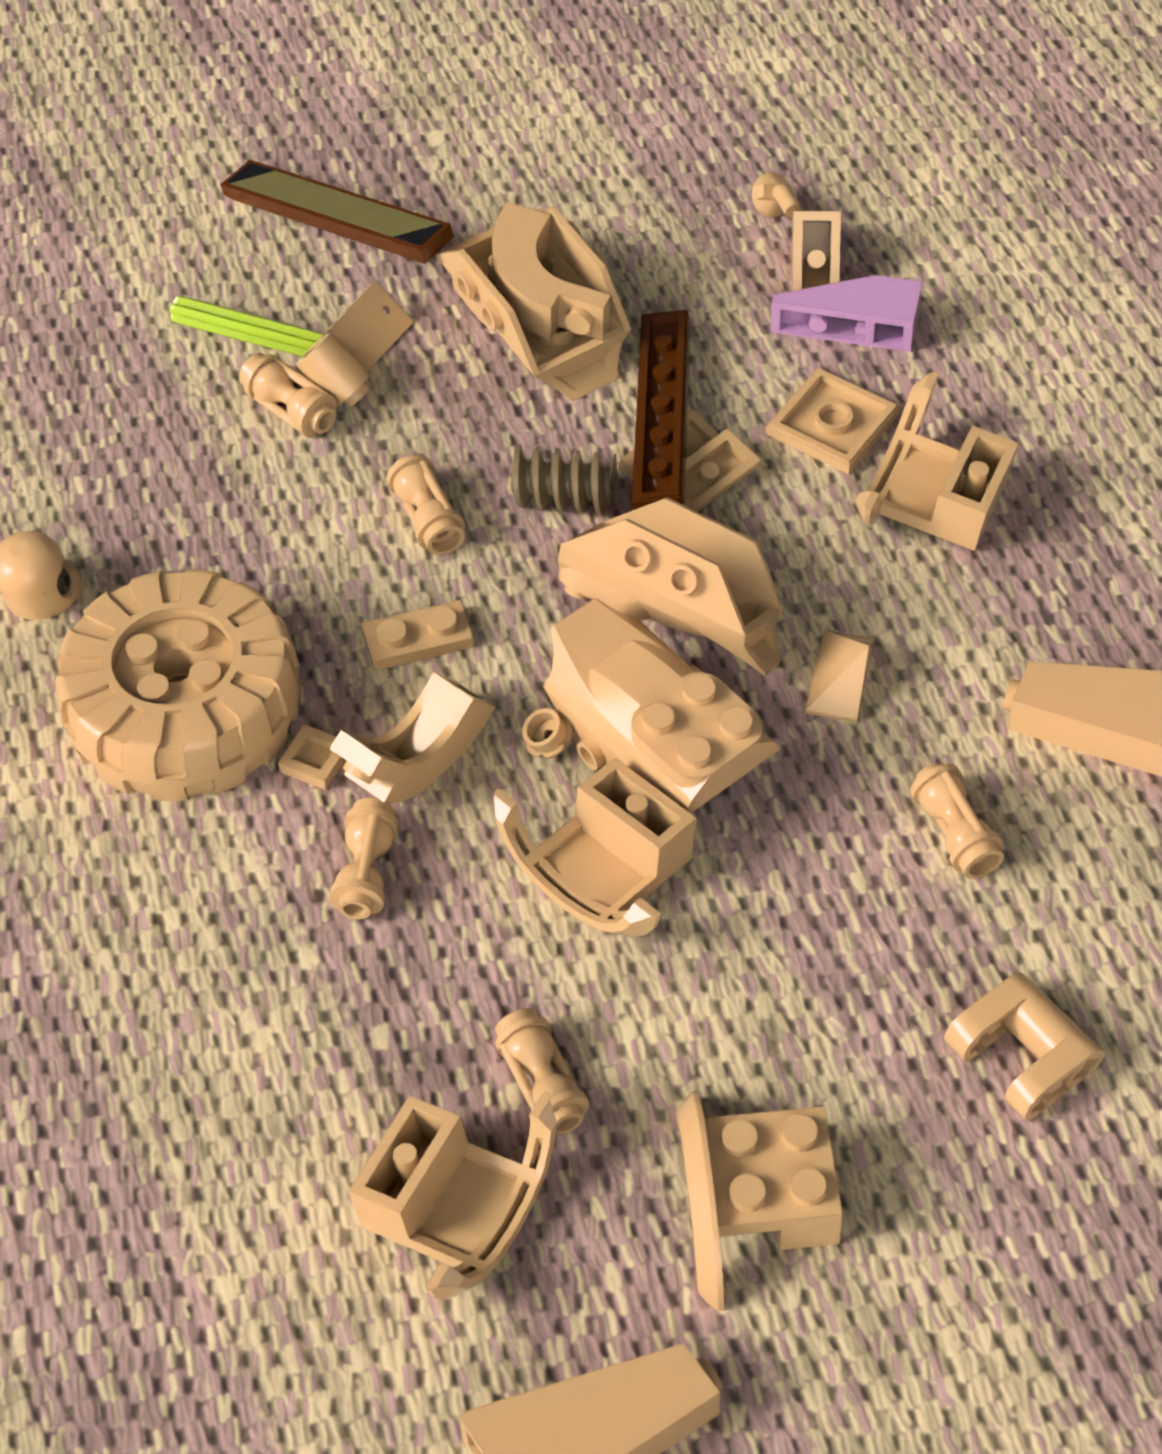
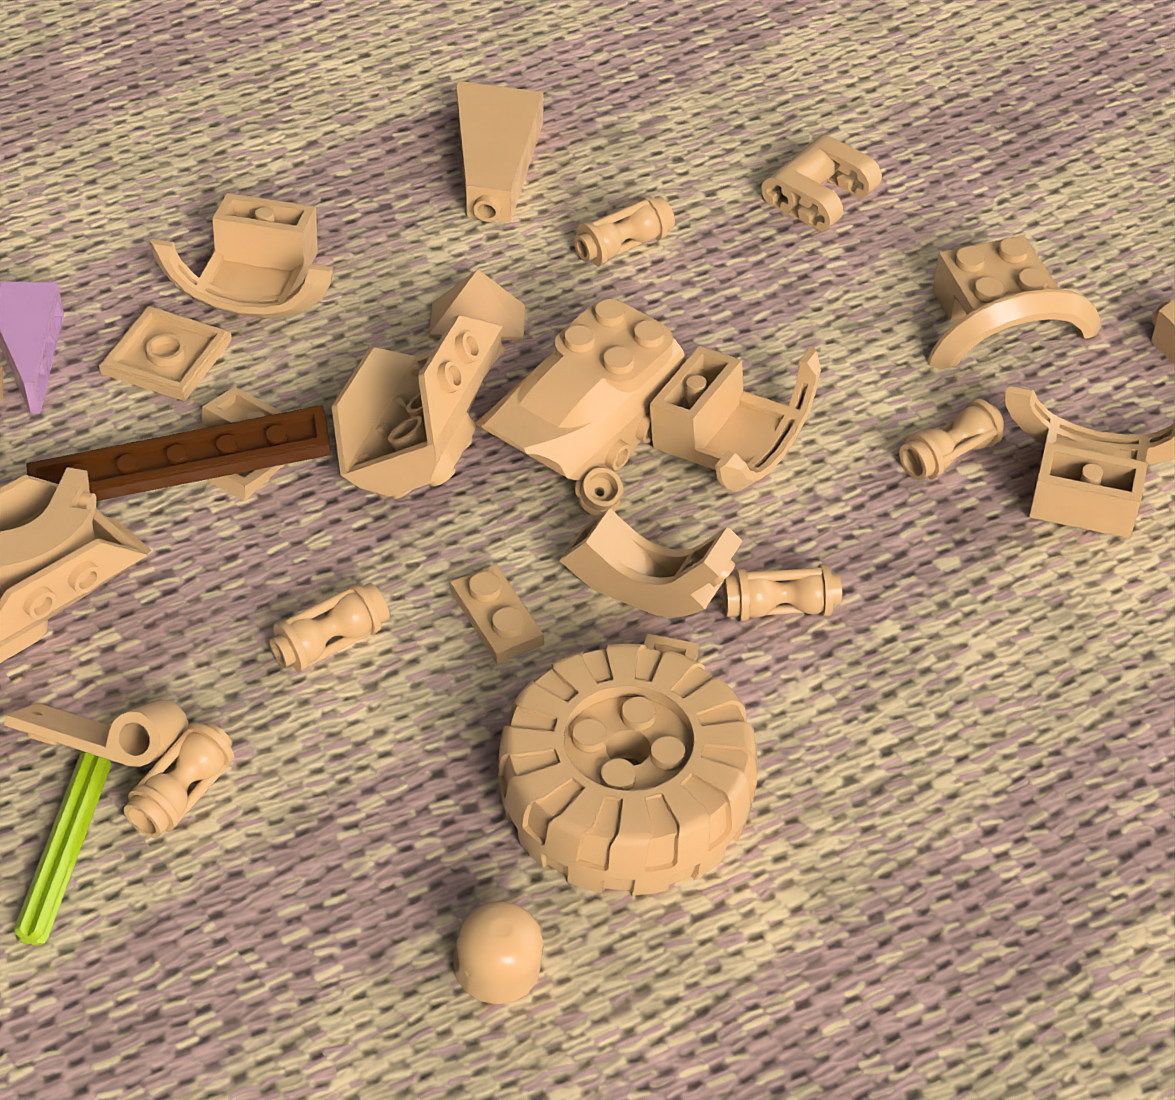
camera: 105 degrees left, 5 degrees down
(563, 481) = (285, 519): dark tan piece -> none

